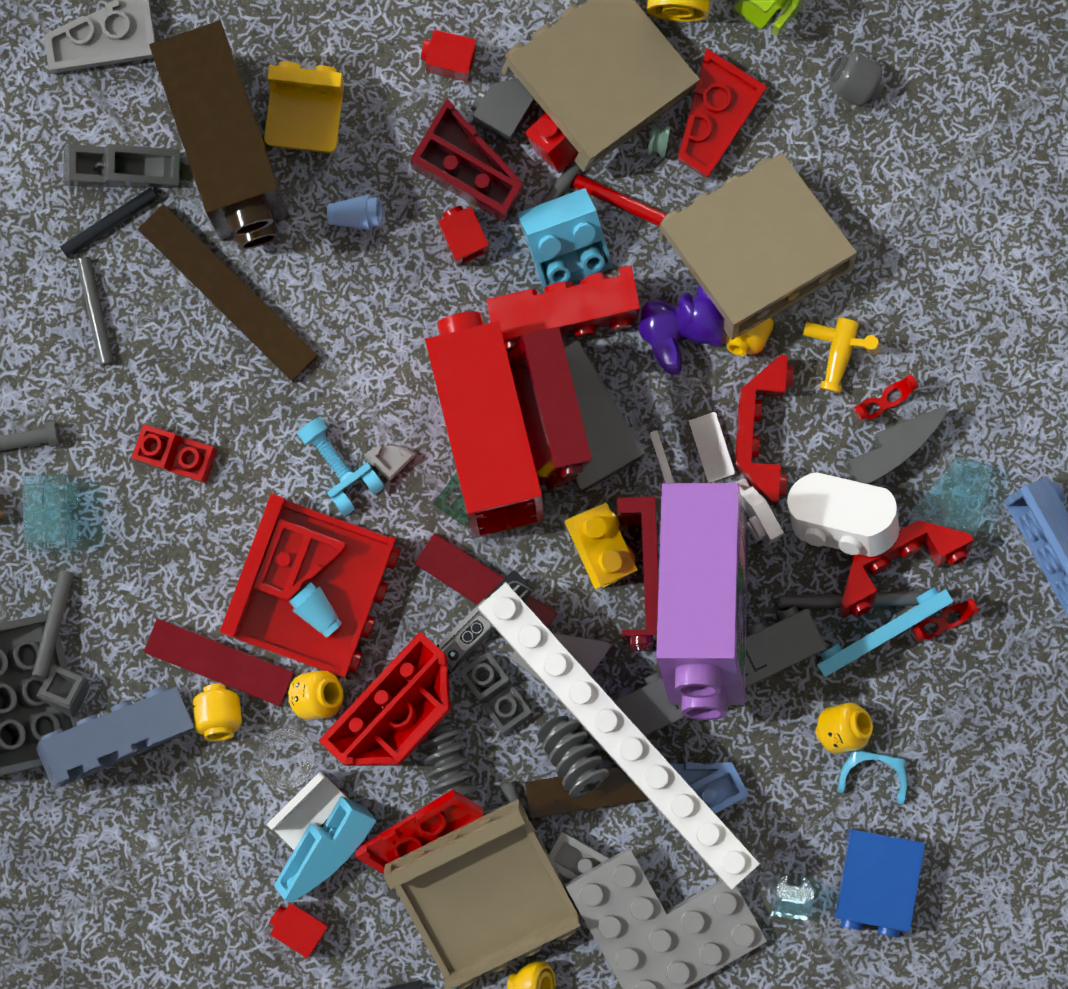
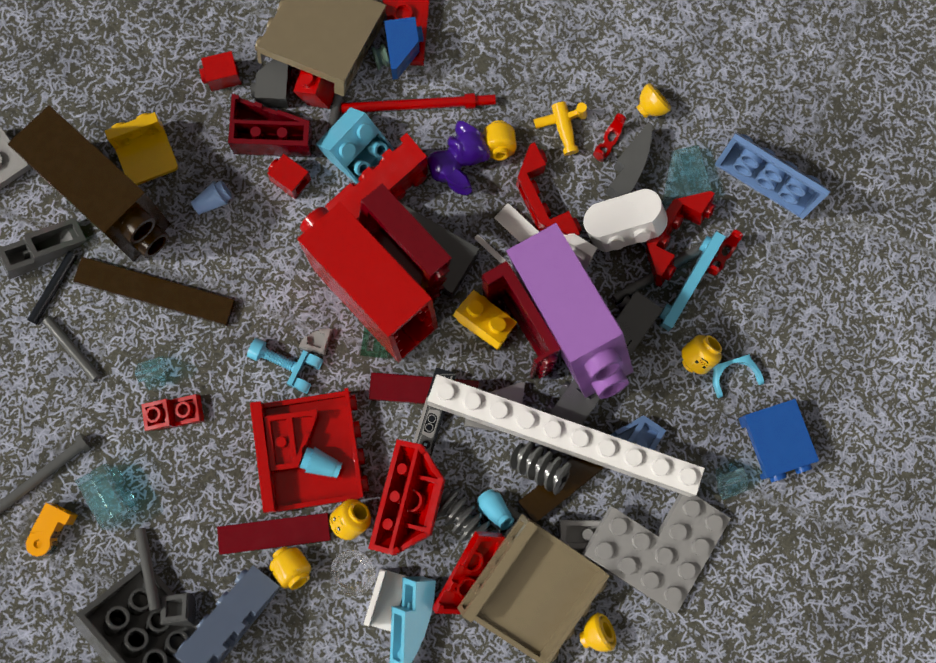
camera: 35 degrees left, 5 degrees down
(176, 389) = (151, 369): none -> clear light blue tile
(492, 776) = (494, 508): none -> medium azure cone
(496, 693) = (467, 454): dark grey slope -> none
(692, 142) = (402, 43): none -> blue slope
(758, 244) = (479, 82): dark tan panel -> none
(969, 380) = (652, 102): none -> yellow brick

